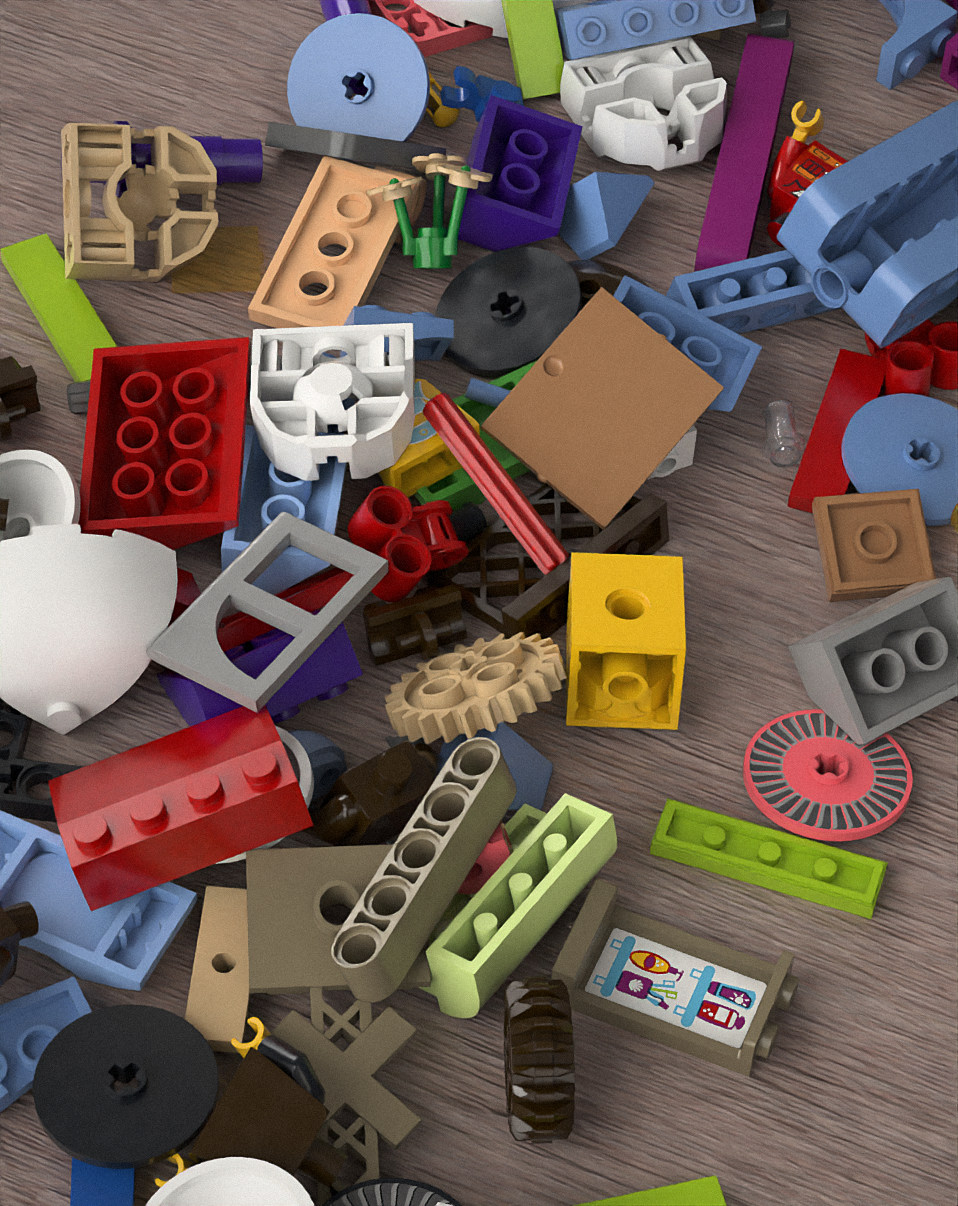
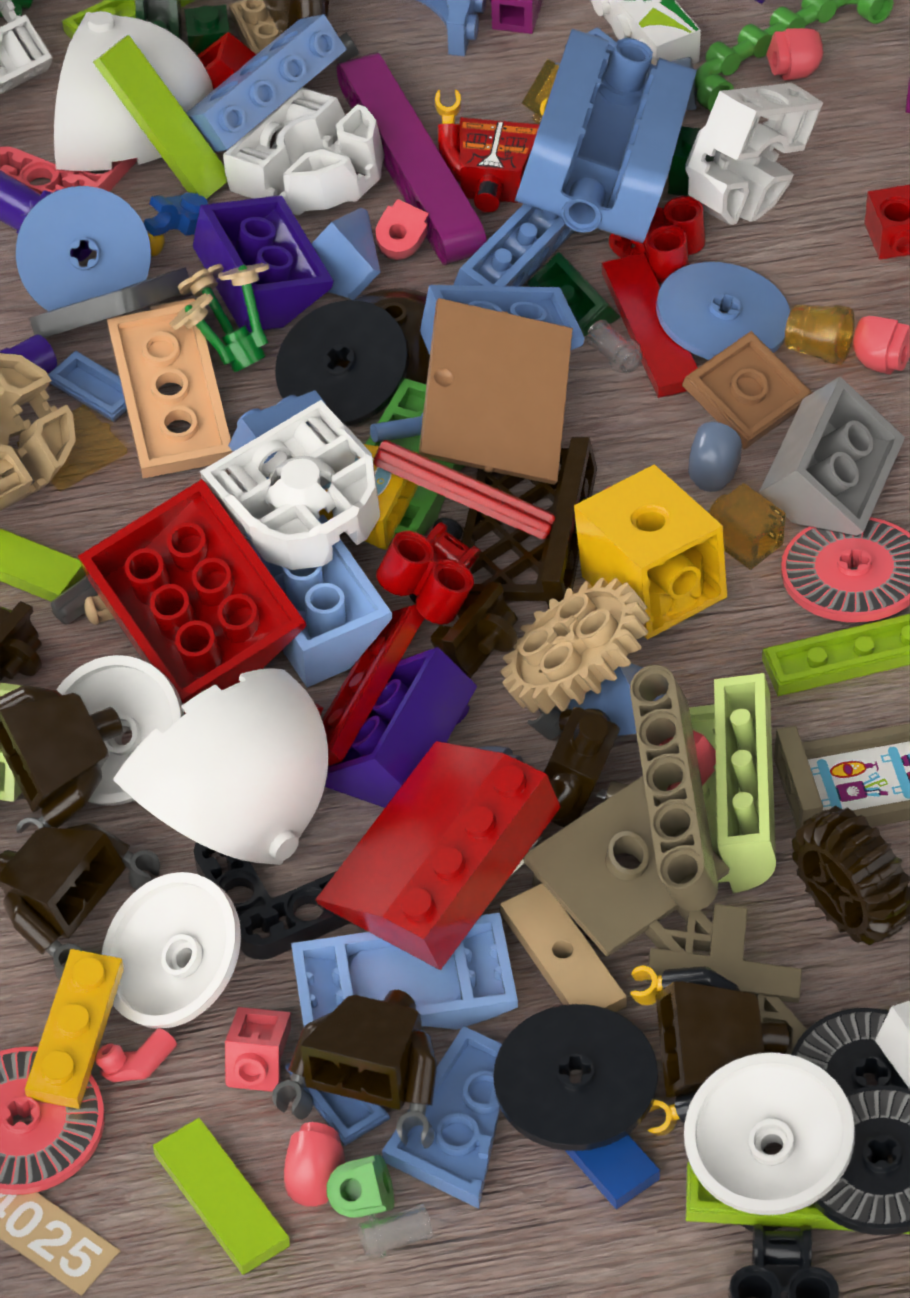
camera: 30 degrees left, 0 degrees up
(191, 640) = (349, 727): light grey window -> none
(273, 206) = (90, 385): none -> medium blue tile
(670, 218) = (401, 230): none -> coral piece
(753, 673) = (750, 525): none -> clear yellow brick
(780, 590) = (714, 456): none -> sand blue piece
(789, 365) = (580, 295): none -> dark green slope

